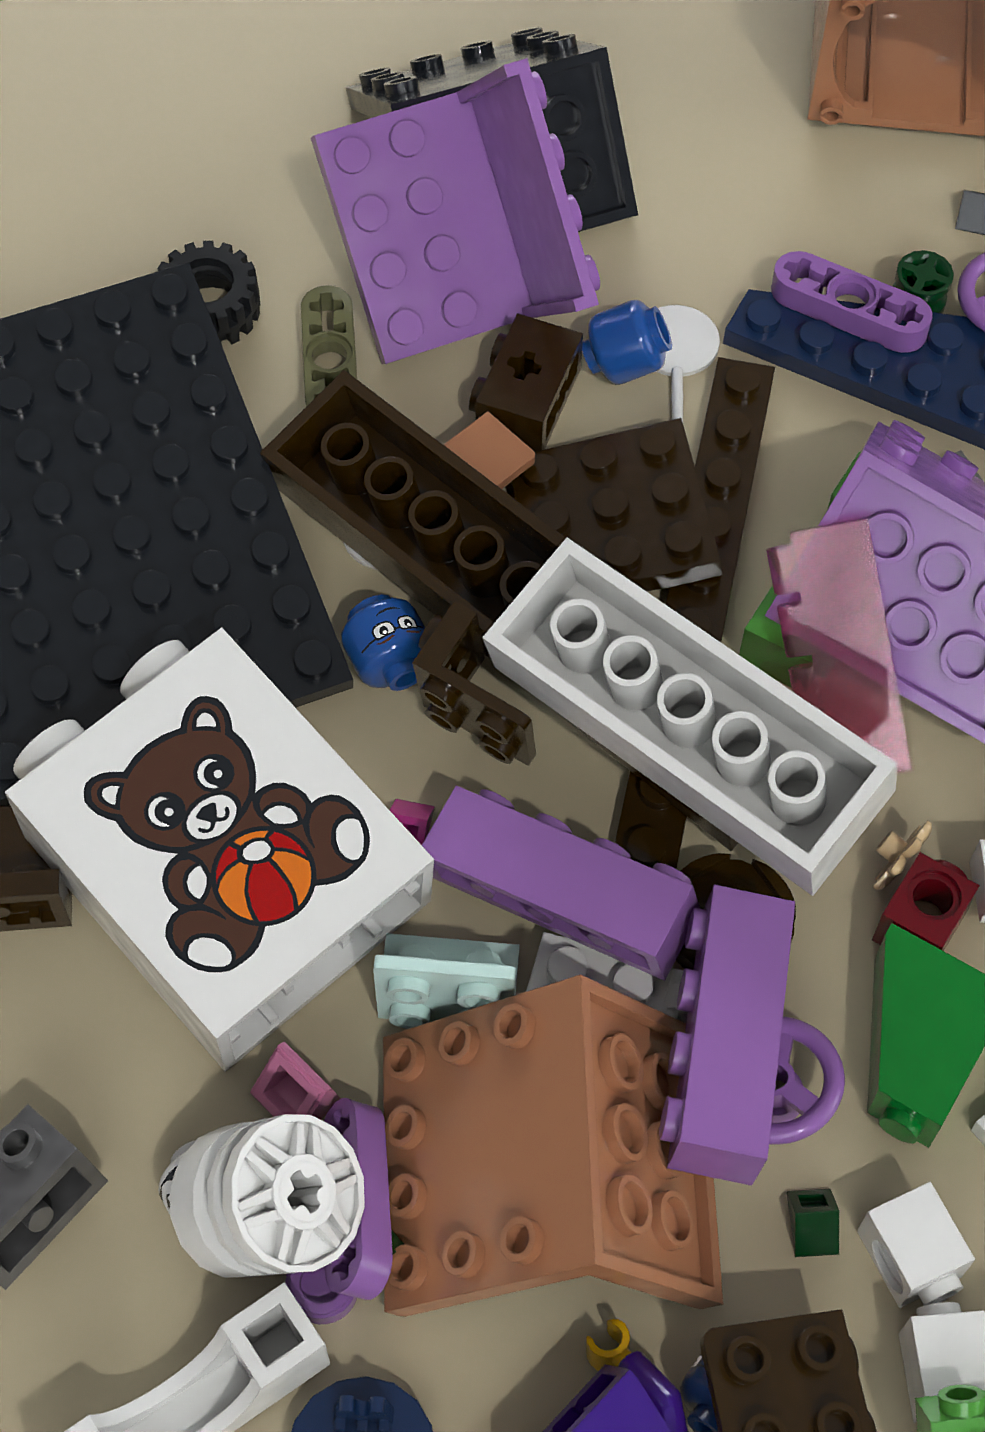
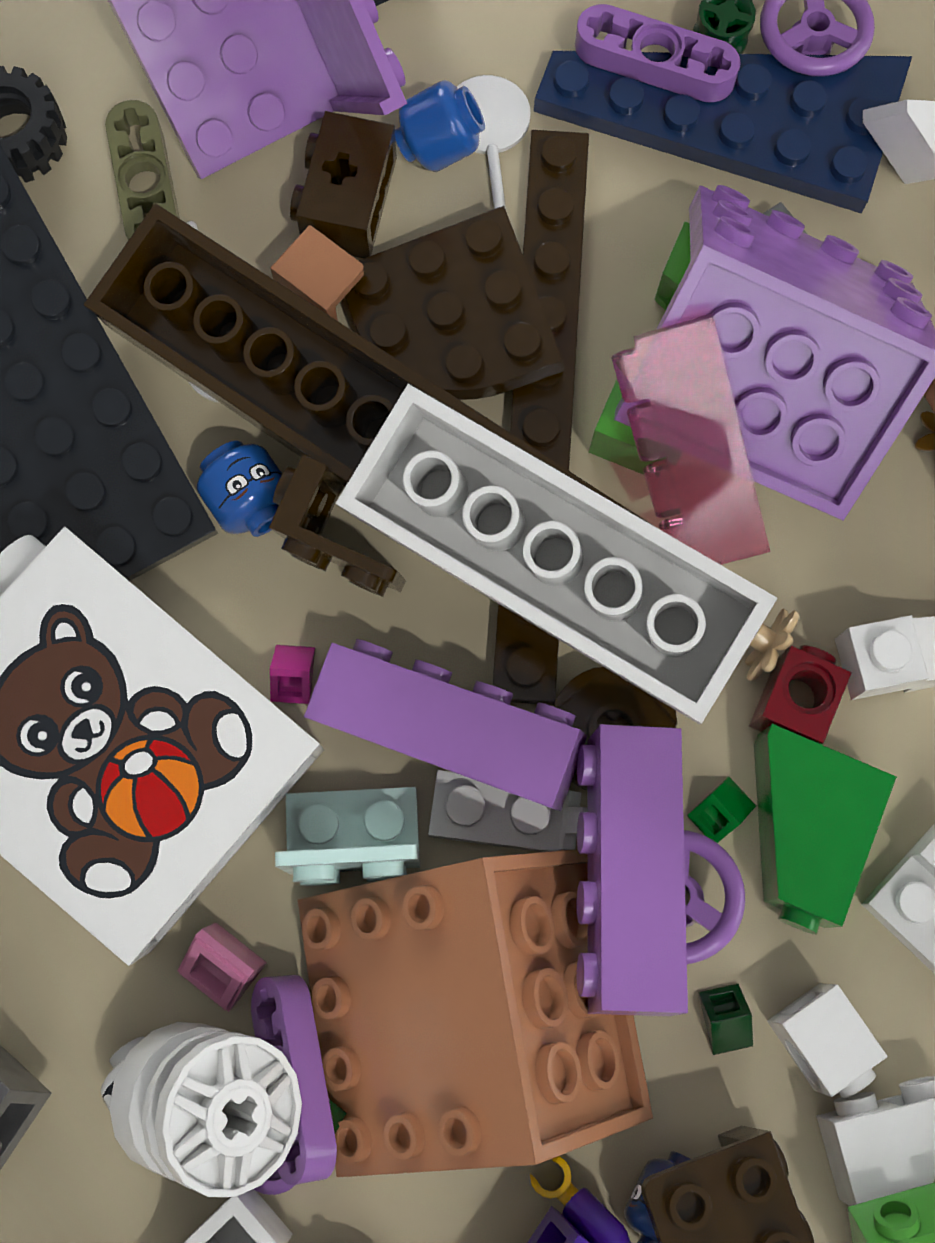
camera: 10 degrees left, 15 degrees up
(834, 1013) = (722, 810): none -> green piece

